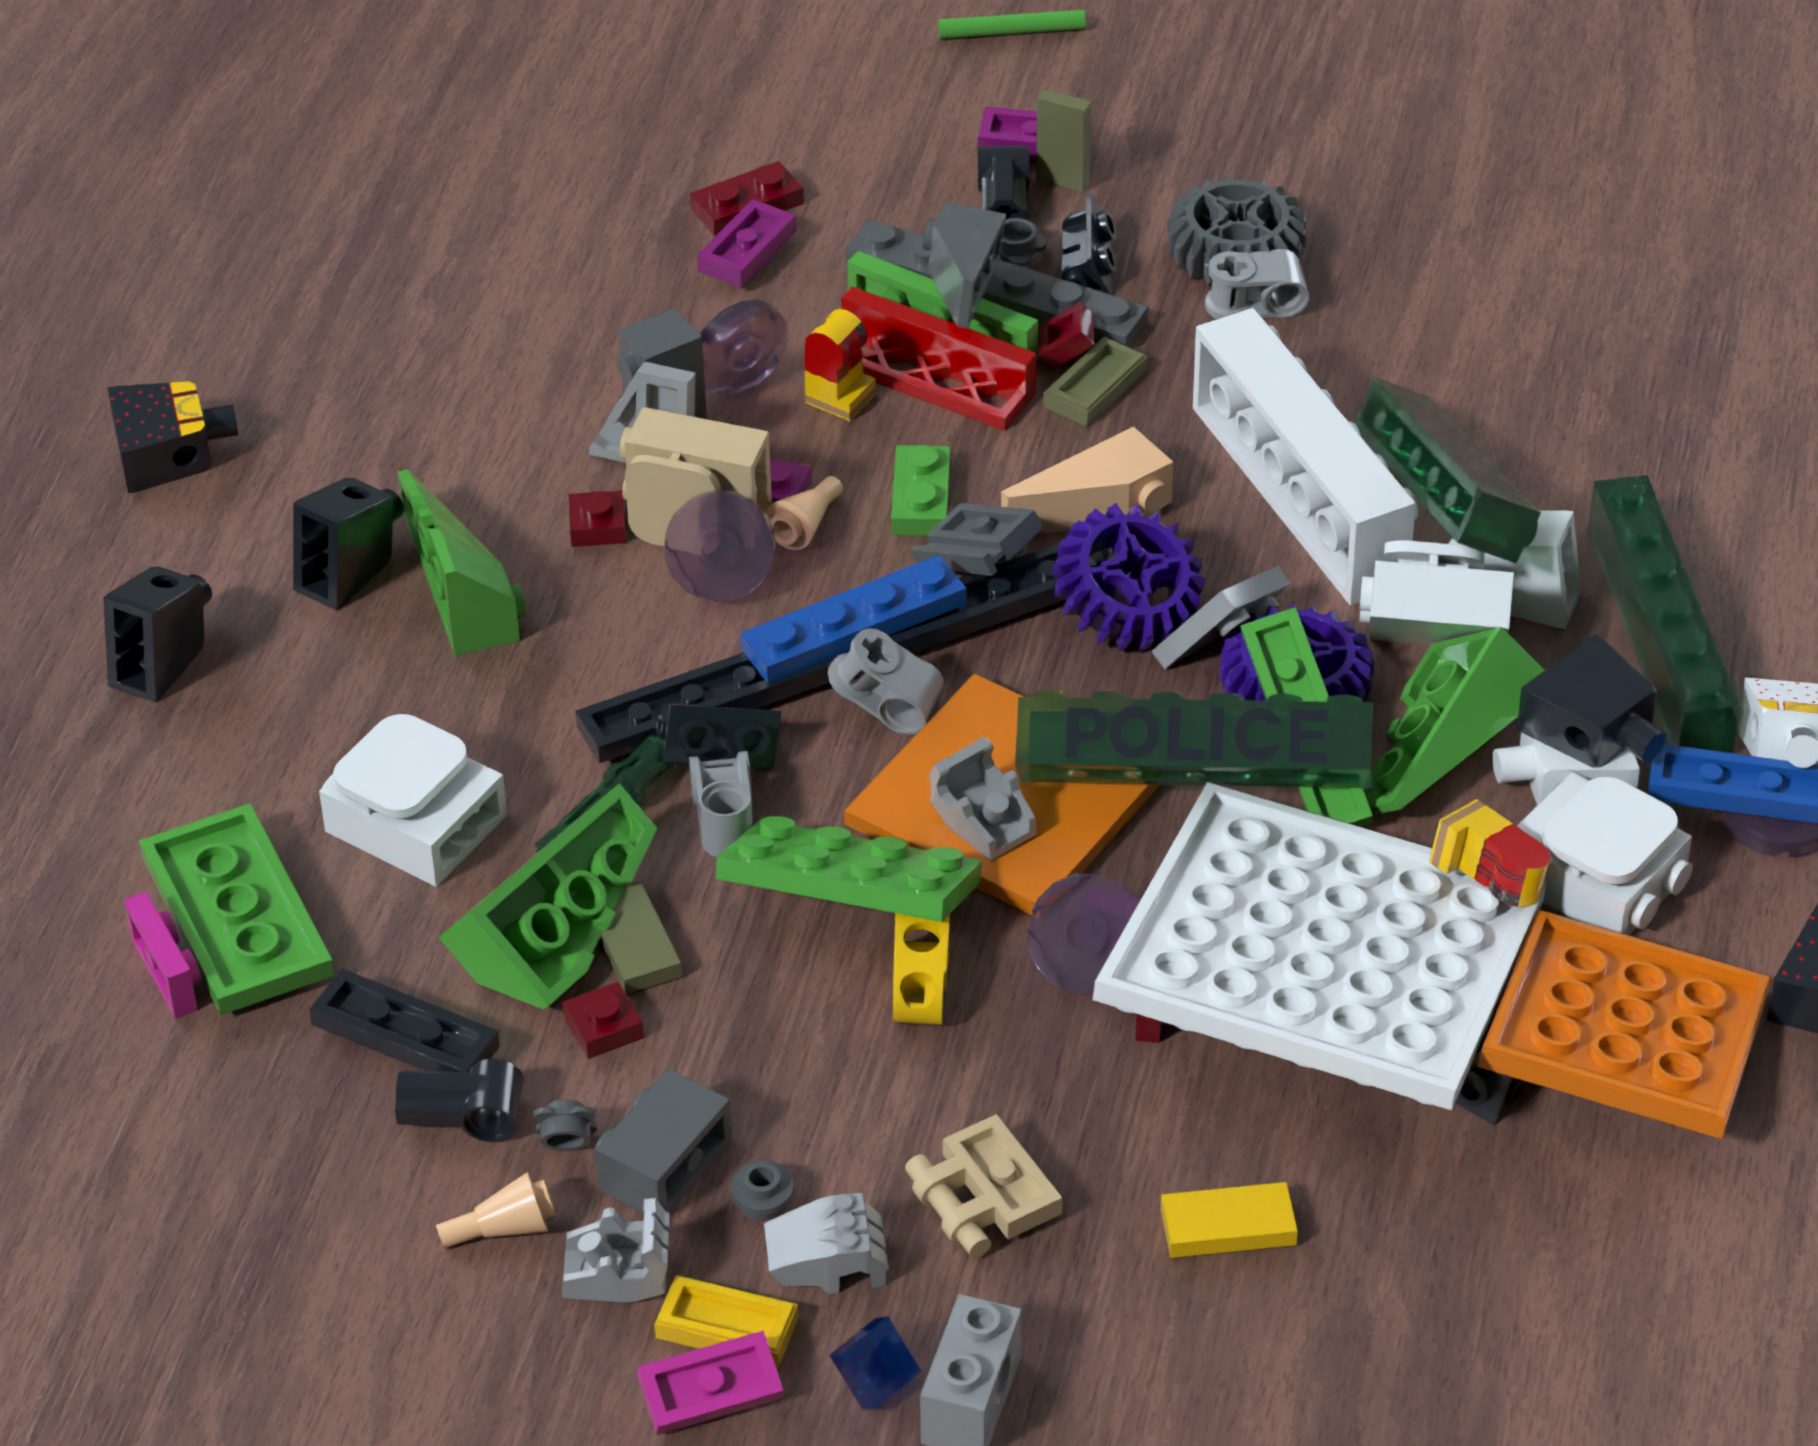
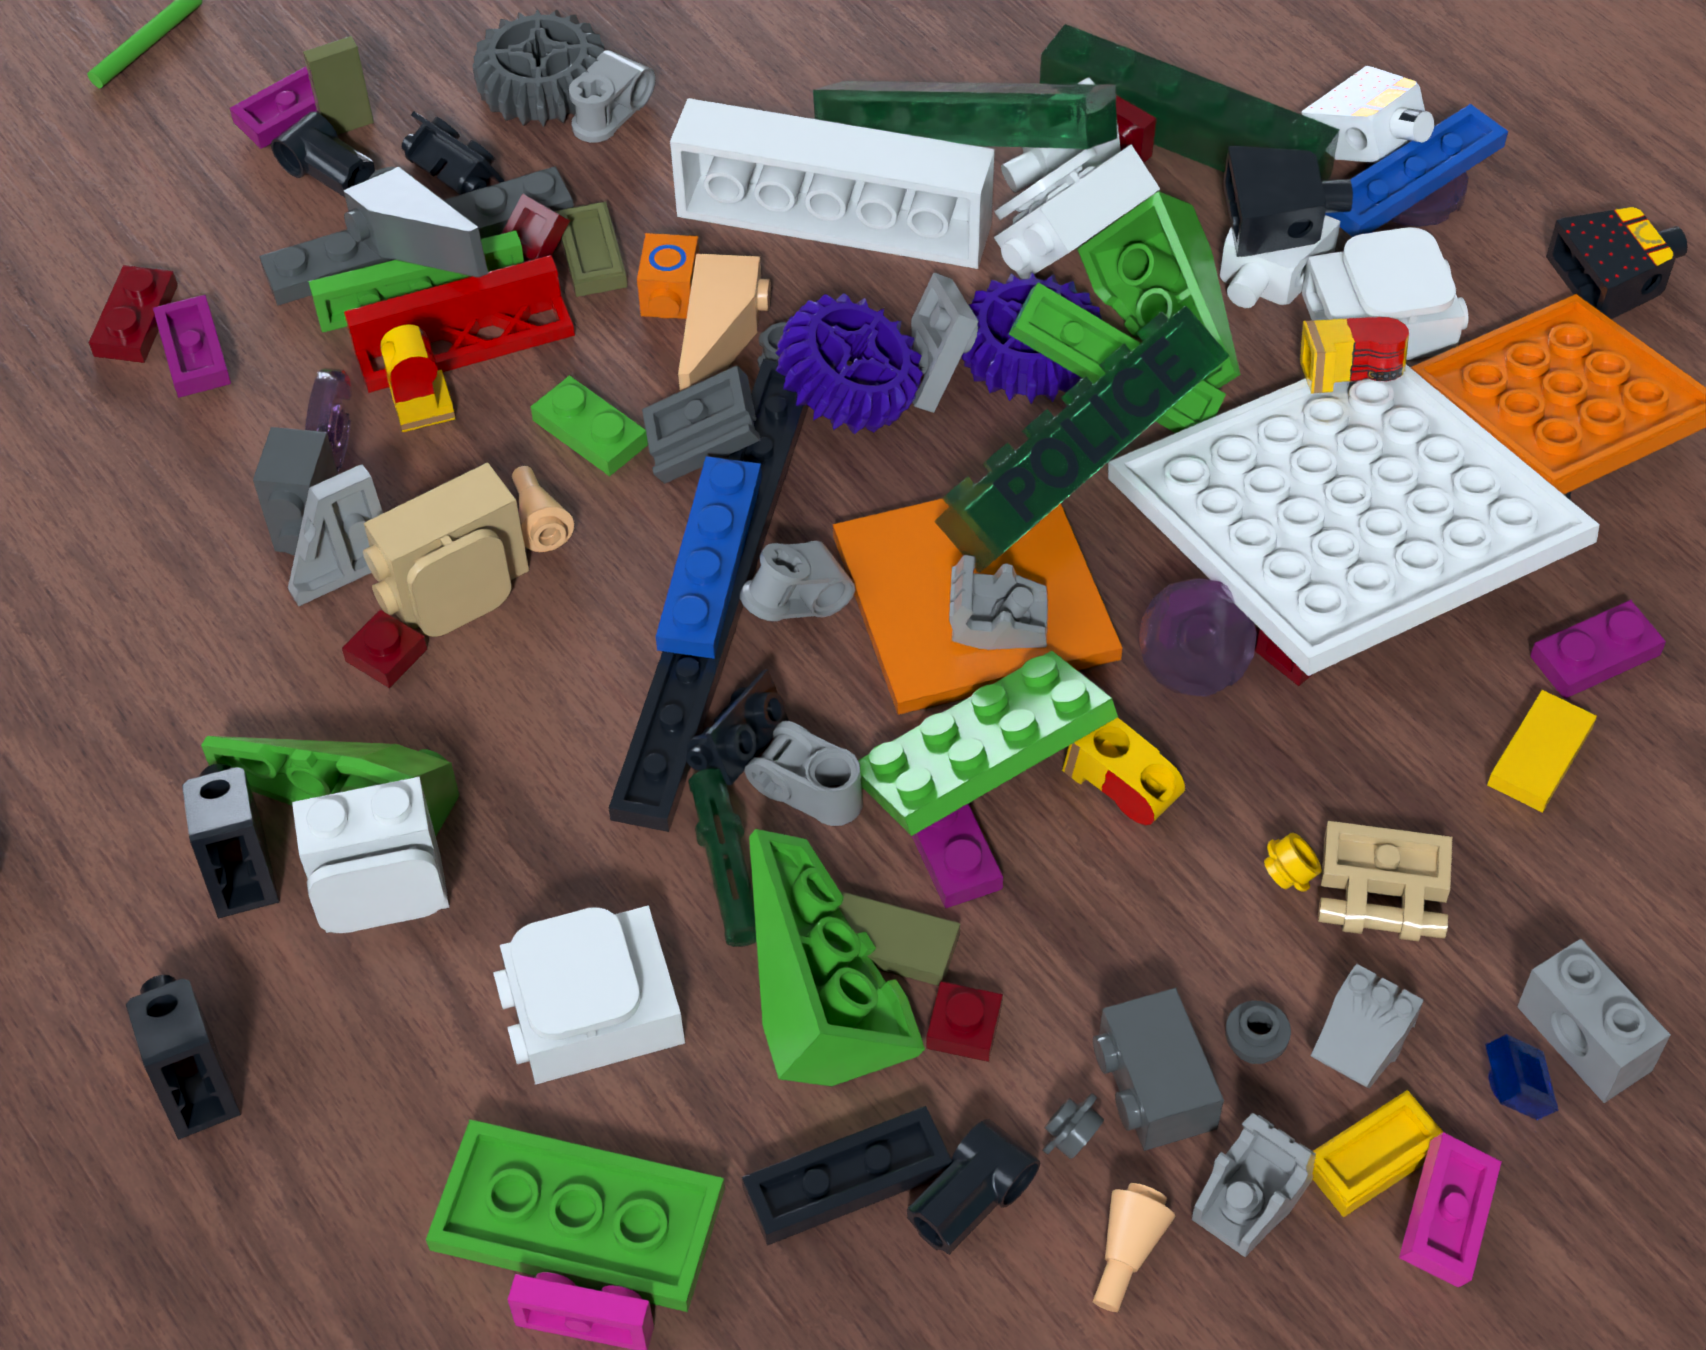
camera: 50 degrees left, 10 degrees up
(387, 607) = (370, 856): none -> white brick
(719, 545) = (537, 585): clear purple tile -> none
(749, 928) = (958, 858): none -> magenta plate
(938, 1117) = (1292, 862): none -> yellow plate
(1104, 419) = (666, 275): none -> orange brick
(1380, 1201) = (1597, 649): none -> magenta plate
(1597, 594) = (1135, 128): none -> dark red plate

